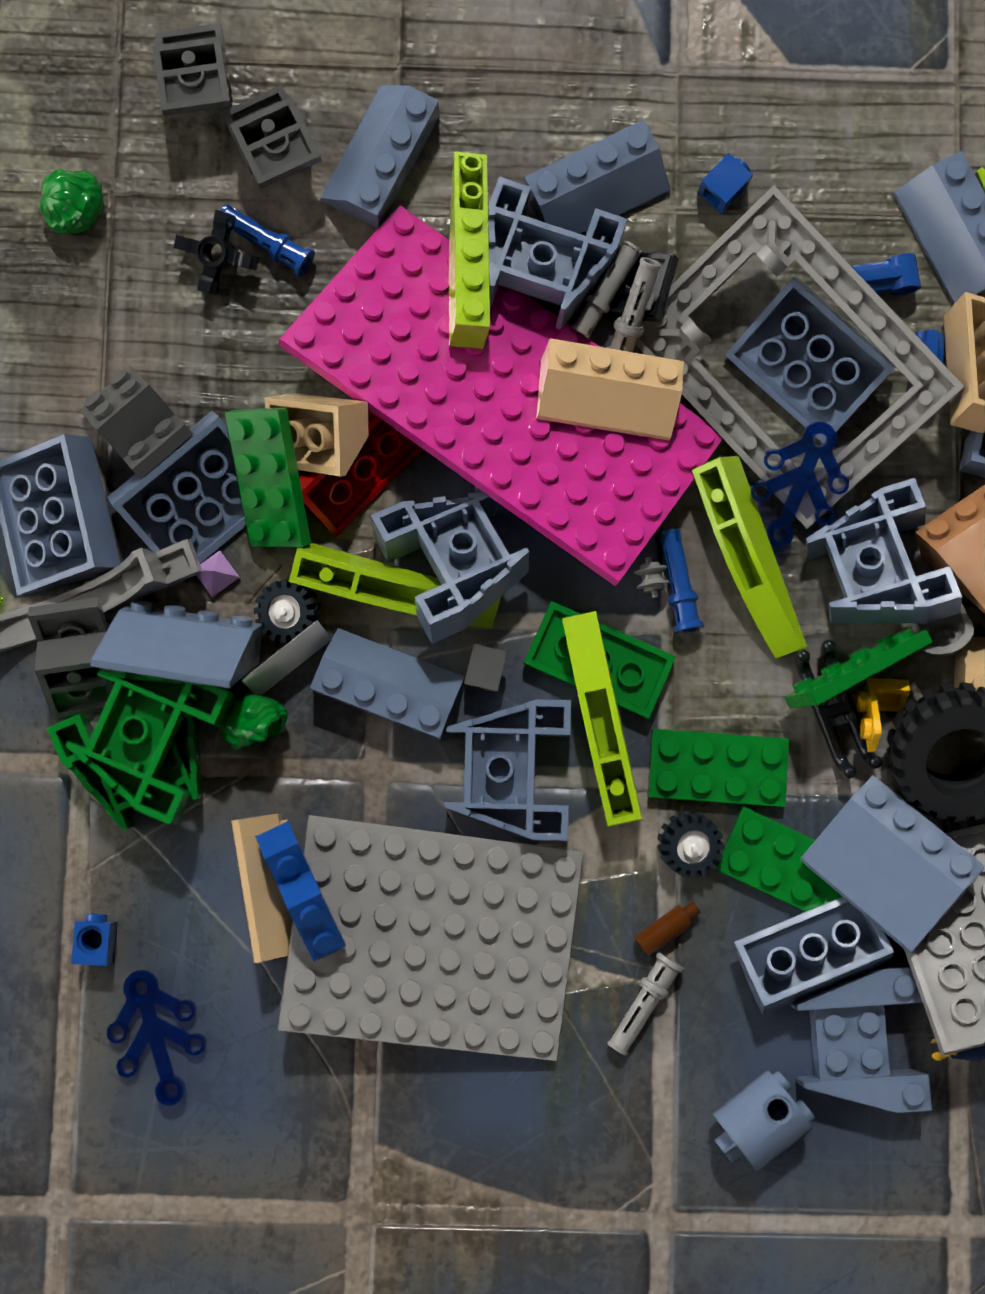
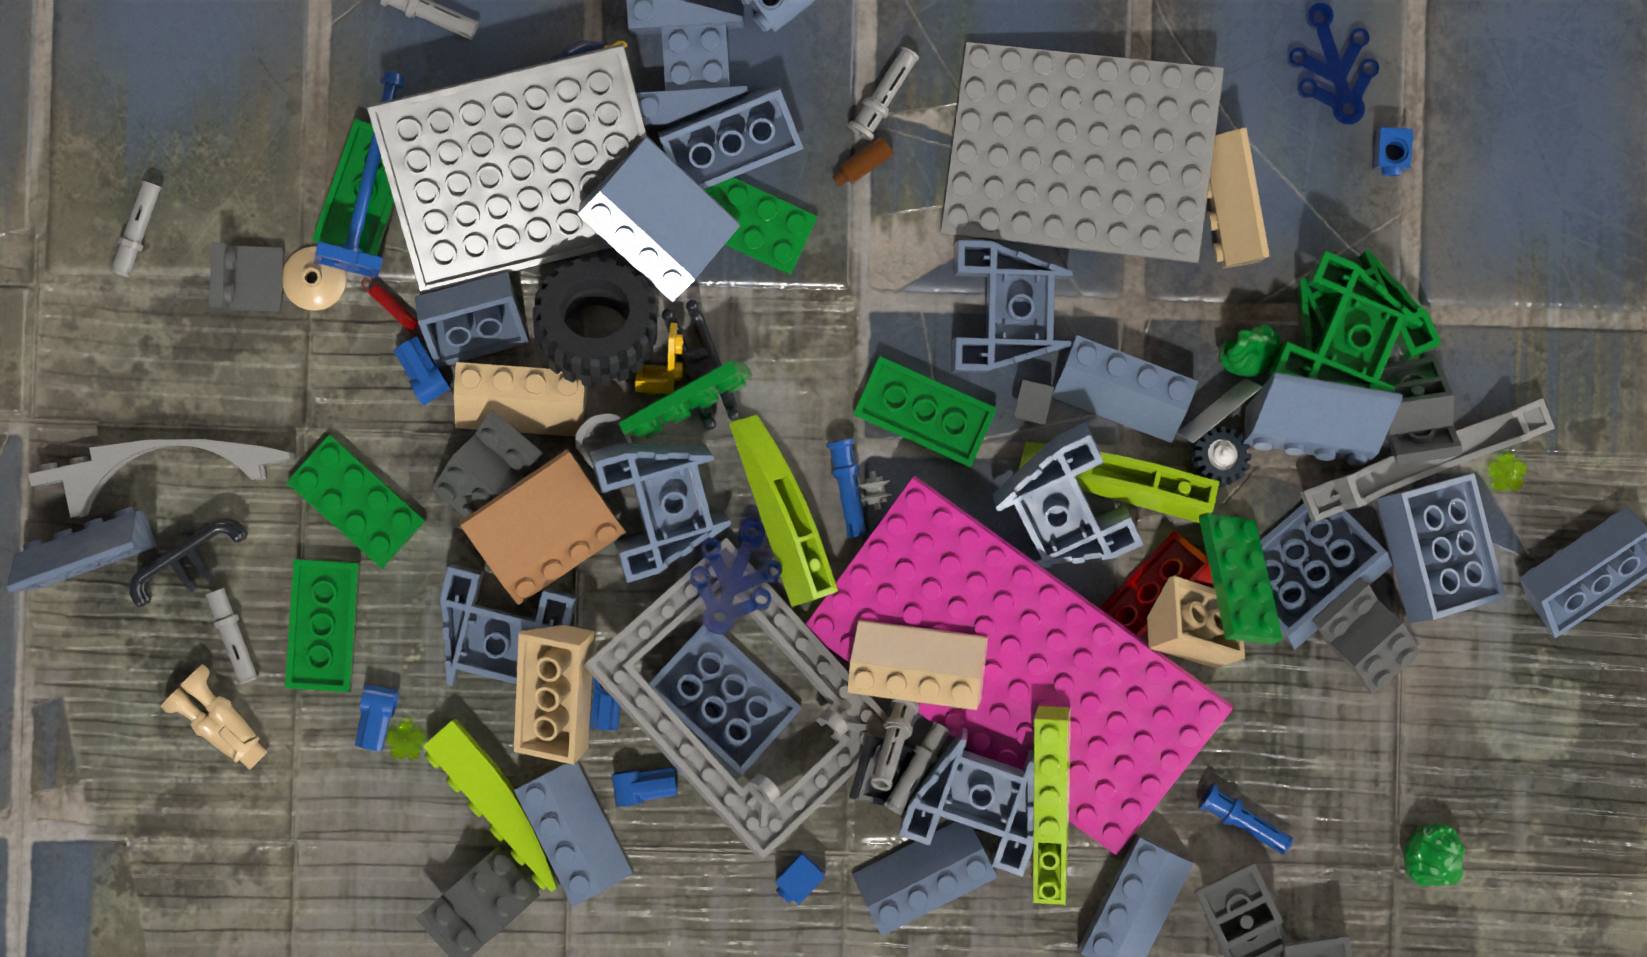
camera: 170 degrees left, 5 degrees up
(217, 574) = (1286, 494): lavender slope -> none
(222, 227) = (1306, 807): black pin -> none
(300, 891) = (1205, 191): blue arch -> none
(602, 719) = (925, 352): lime slope -> none
(690, 844) = (841, 238): black wheel -> none
(718, 767) = (813, 311): green plate -> none

